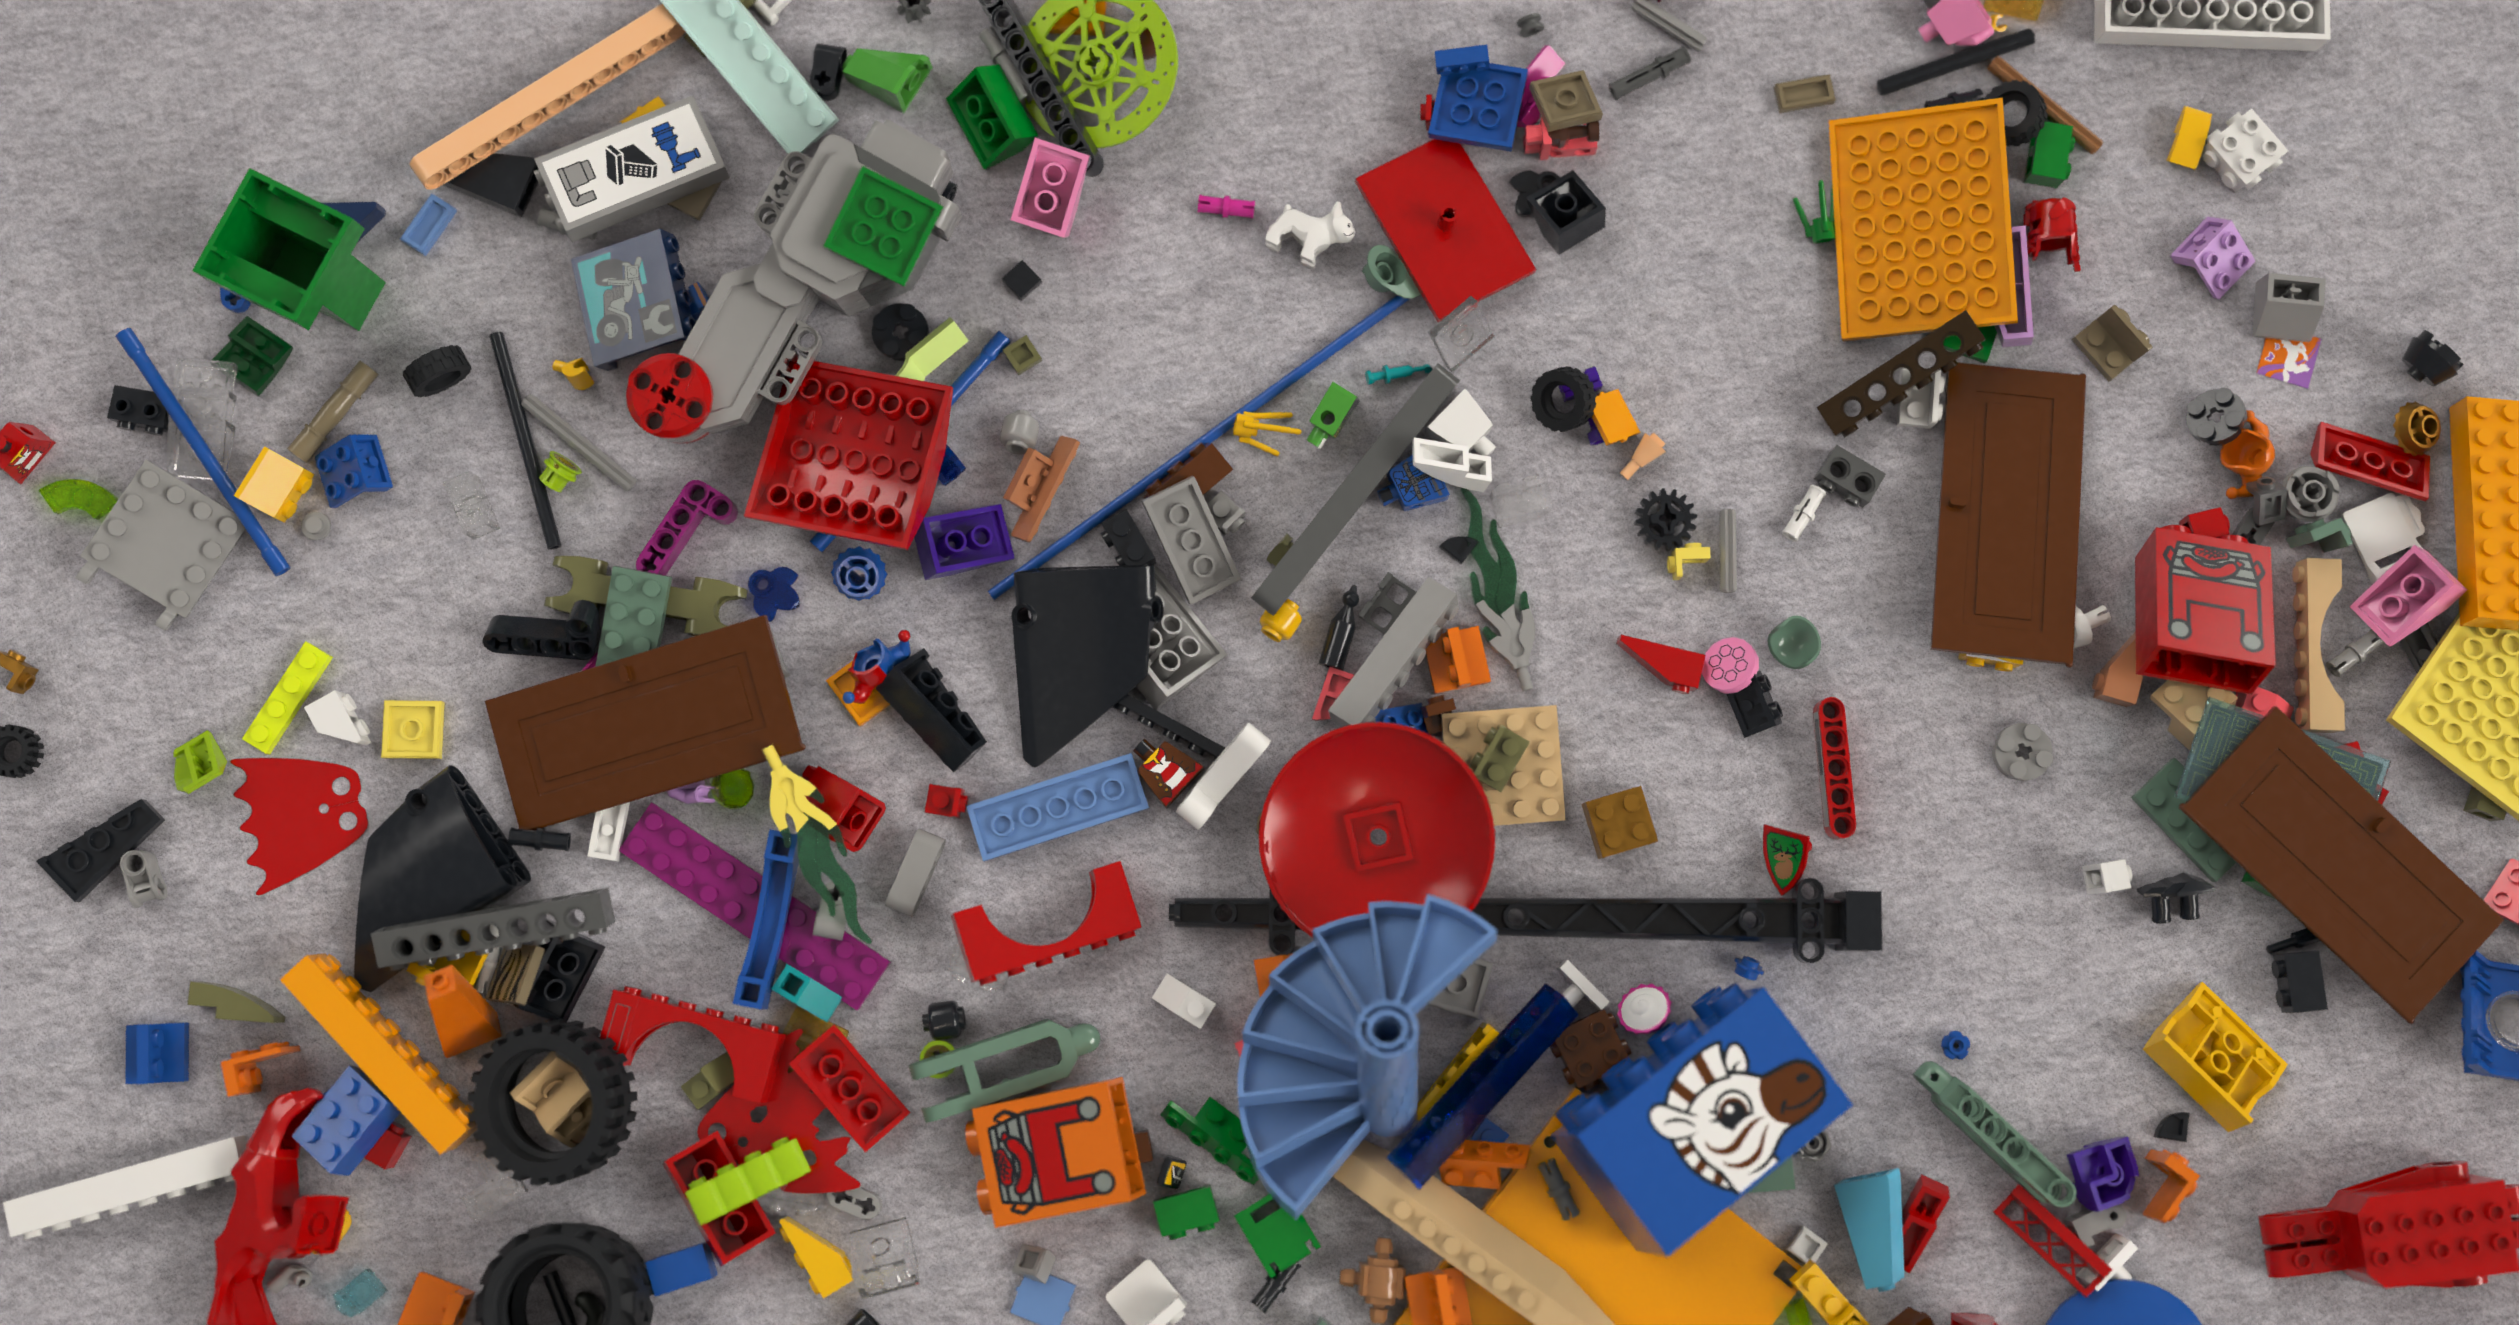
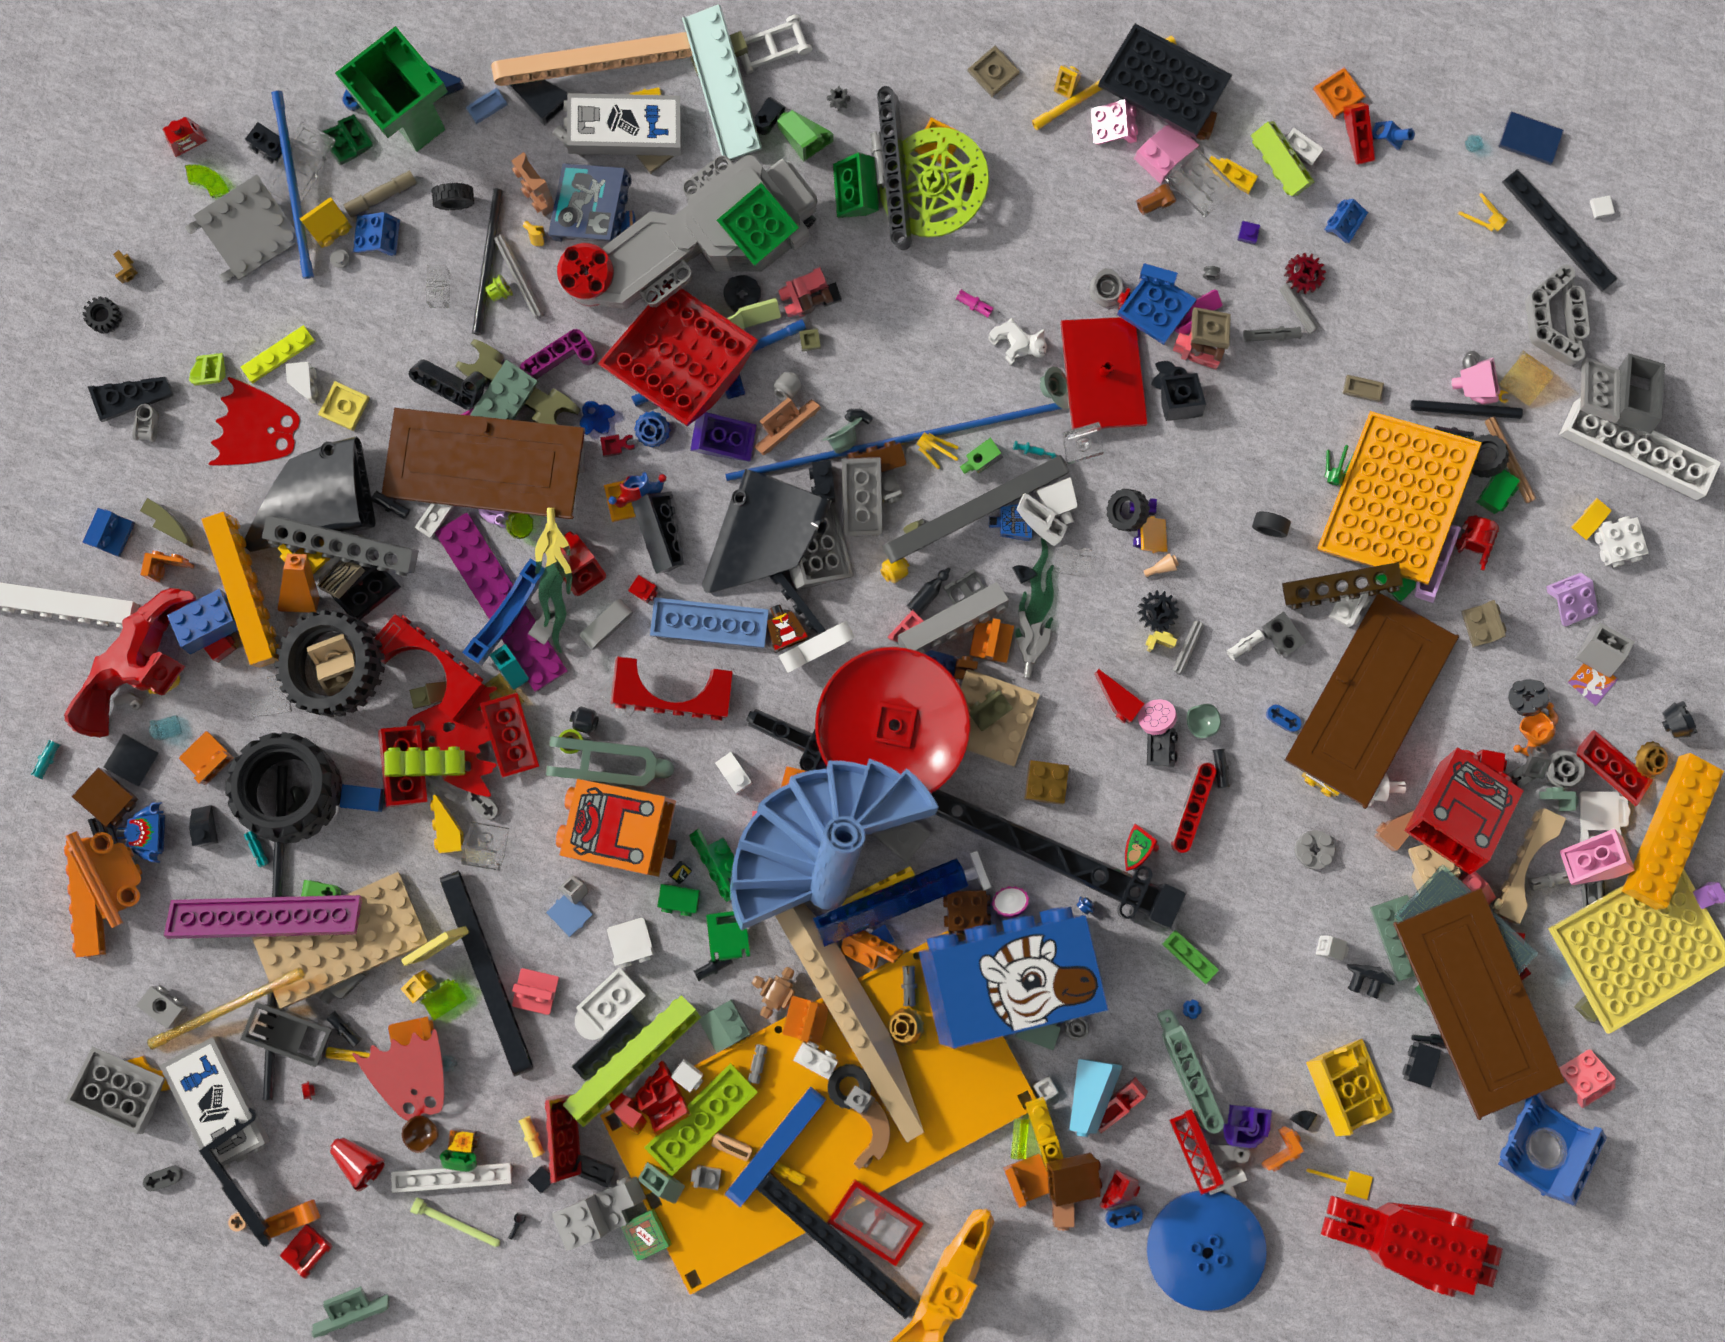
camera: 20 degrees right, 0 degrees up
(542, 307) = (533, 185): none -> nougat piece
(815, 619) = (613, 445): none -> dark red plate
(980, 293) = (801, 292): none -> coral hips
(1051, 188) = (871, 246): bright pink slope -> none
(1130, 468) = (843, 438): none -> sand green piece
(1134, 427) = (858, 413): none -> black arm
(1397, 107) = (1106, 288): none -> light grey hat
(1579, 1248) = (906, 1027): none -> pearl gold piece
(1766, 333) = (1271, 524): none -> black tyre
(1856, 714) = (1219, 754): none -> black pin
(1900, 584) = (1281, 721): none -> blue beam
(1921, 975) = (1190, 957): none -> bright green plate
(2285, 1186) = (1357, 1183): none -> yellow piece

